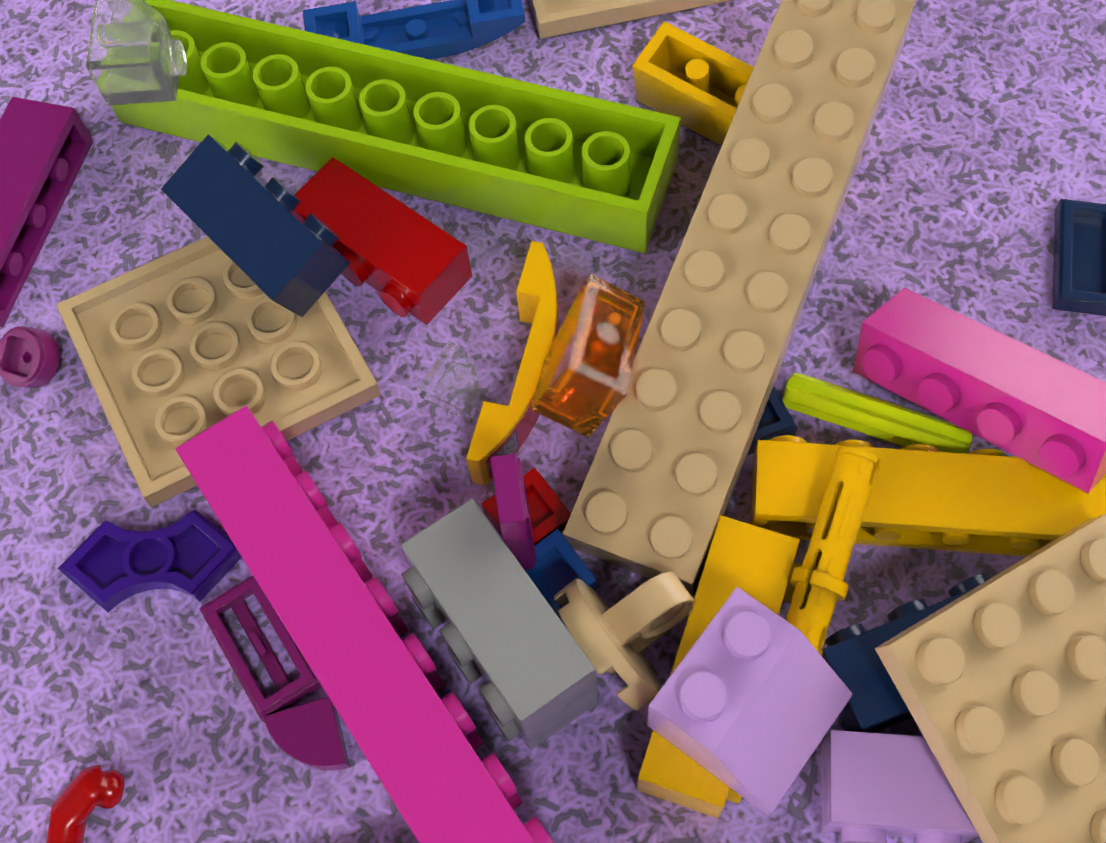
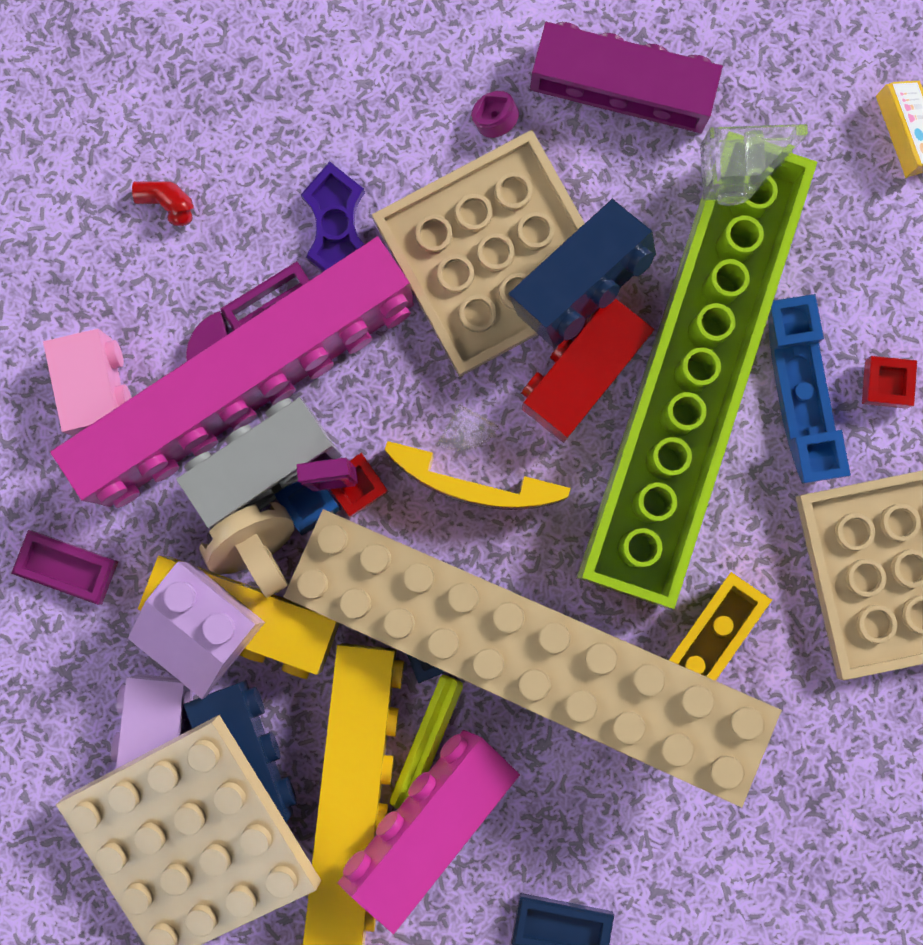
camera: 85 degrees right, 20 degrees up
(590, 357) = (457, 532): clear orange slope -> none
(822, 574) = (284, 686): yellow pin -> none

